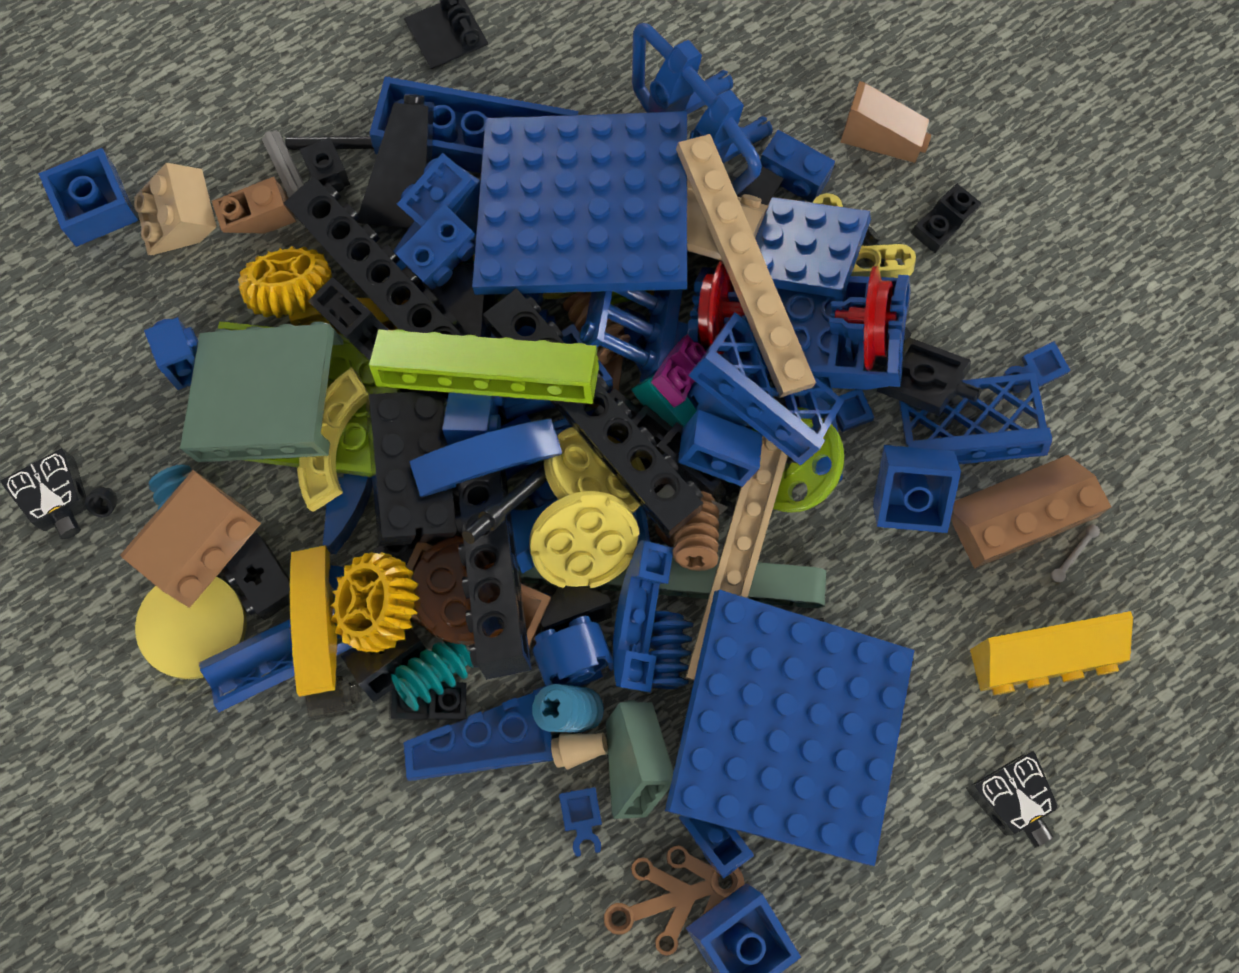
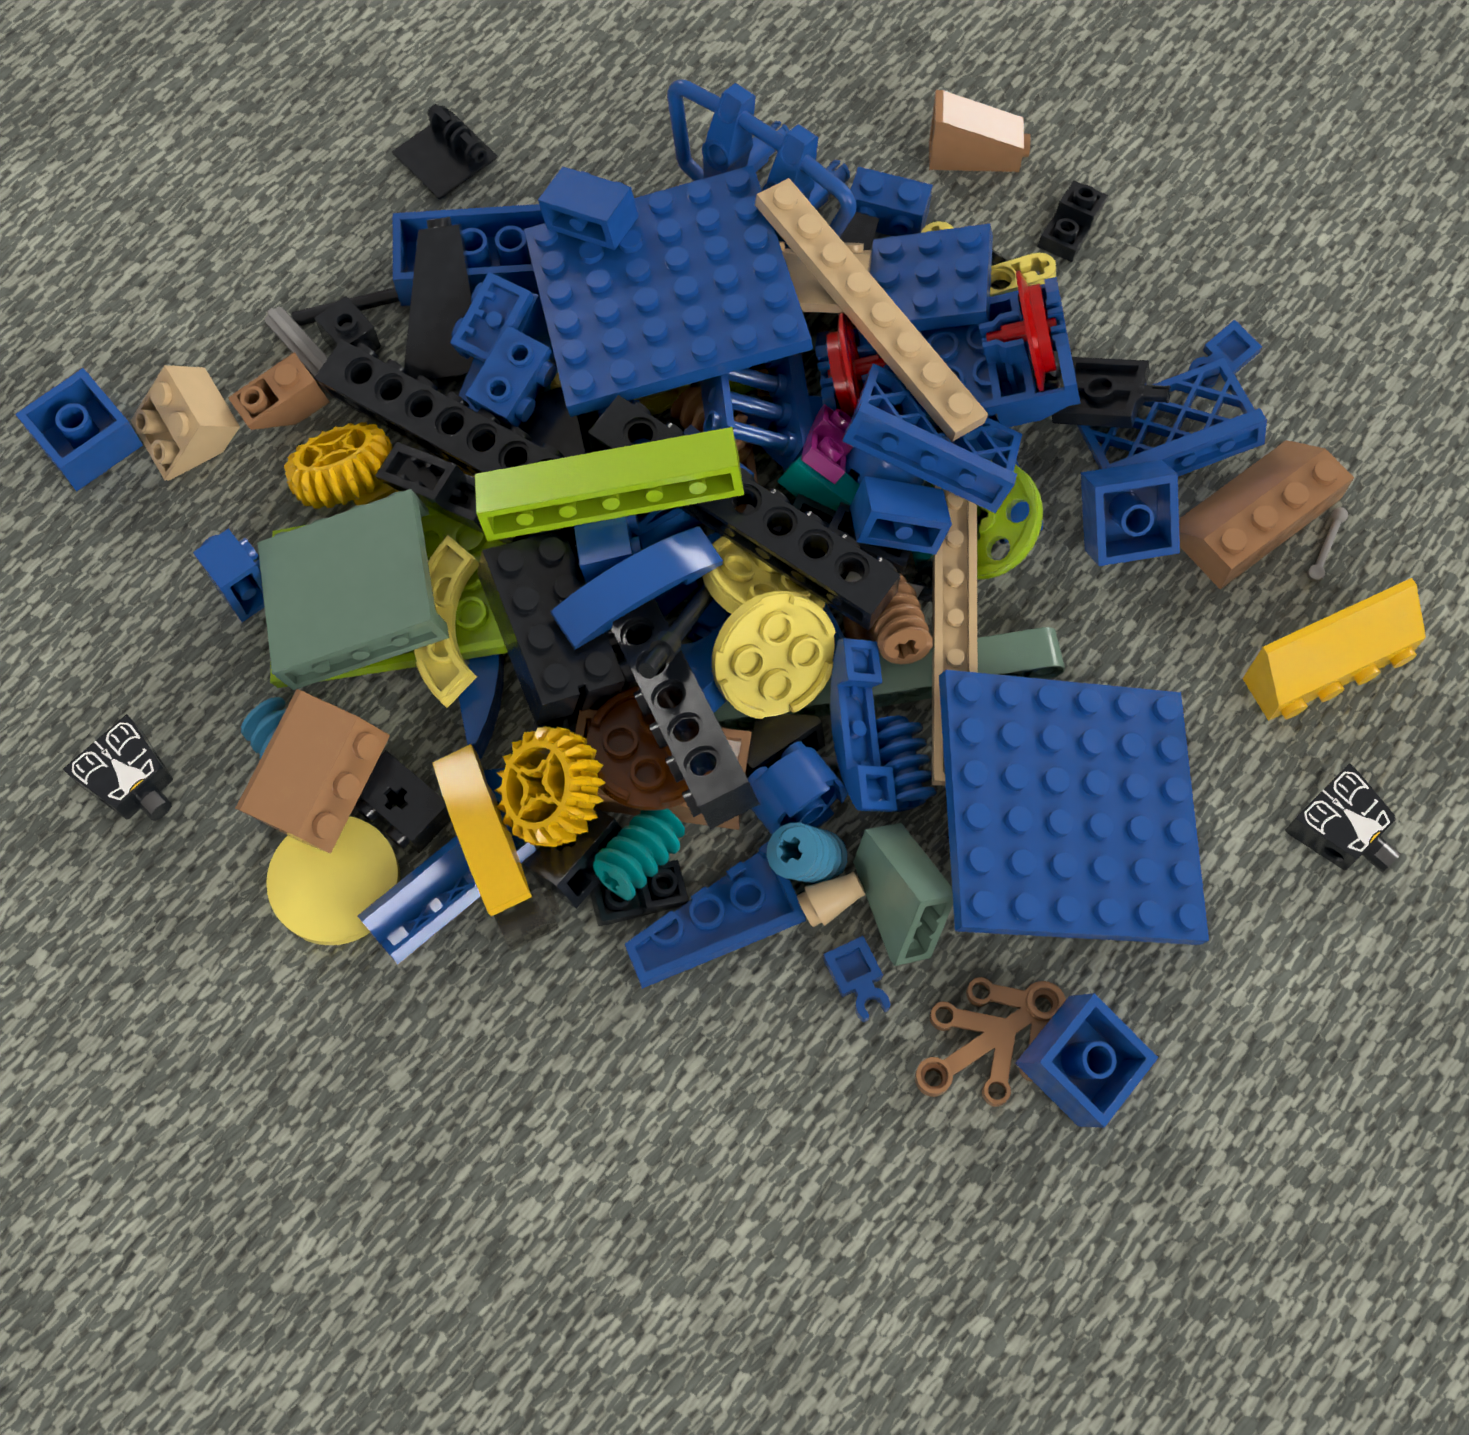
camera: 10 degrees left, 5 degrees down
(95, 499) = (179, 767): black hinge -> none
(539, 117) = (588, 207): none -> blue brick
(720, 845) = (1027, 959): blue slope -> none
(854, 410) = (1034, 451): blue tile -> none

